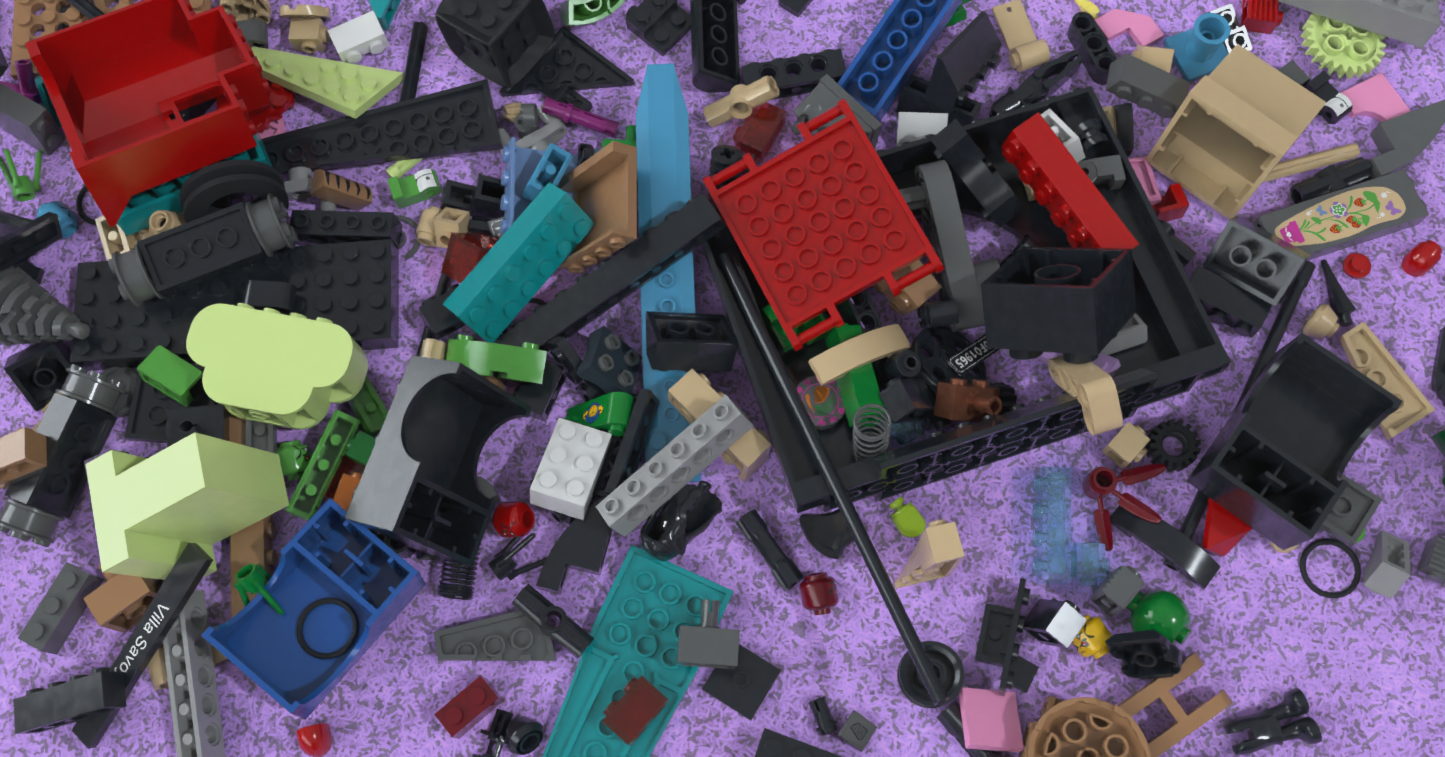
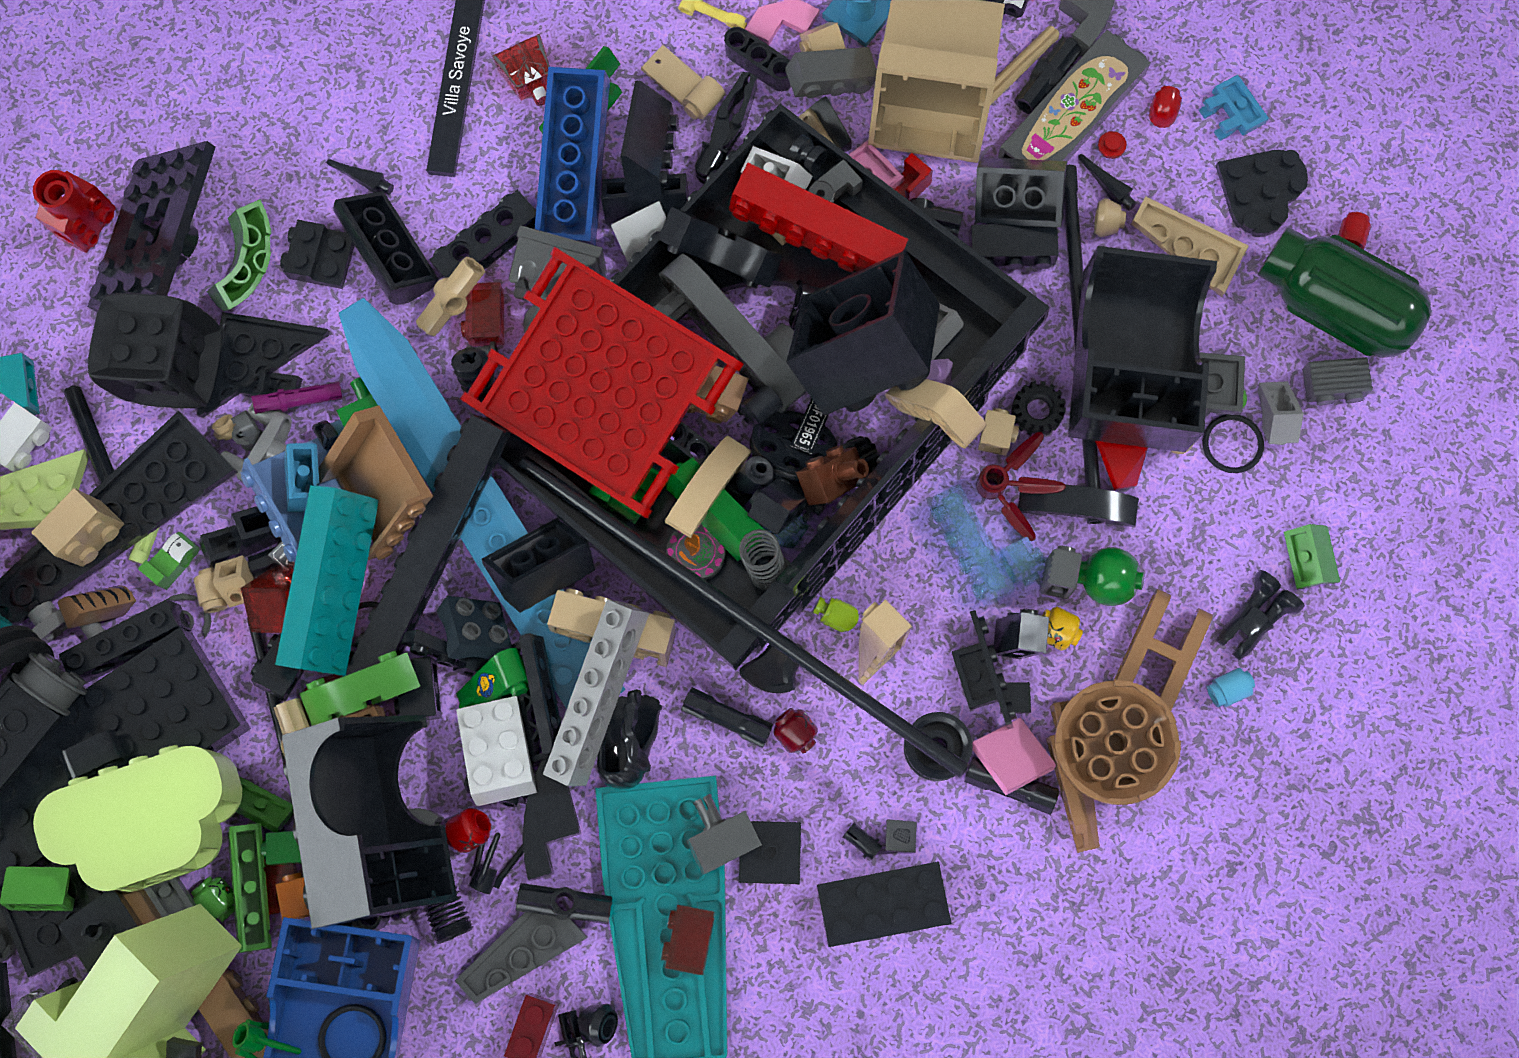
camera: 30 degrees left, 5 degrees up
(361, 123) = (78, 528): none -> tan brick
(1146, 654) = (1117, 617): black slope -> none
(1350, 702) = (1311, 556): none -> bright green panel

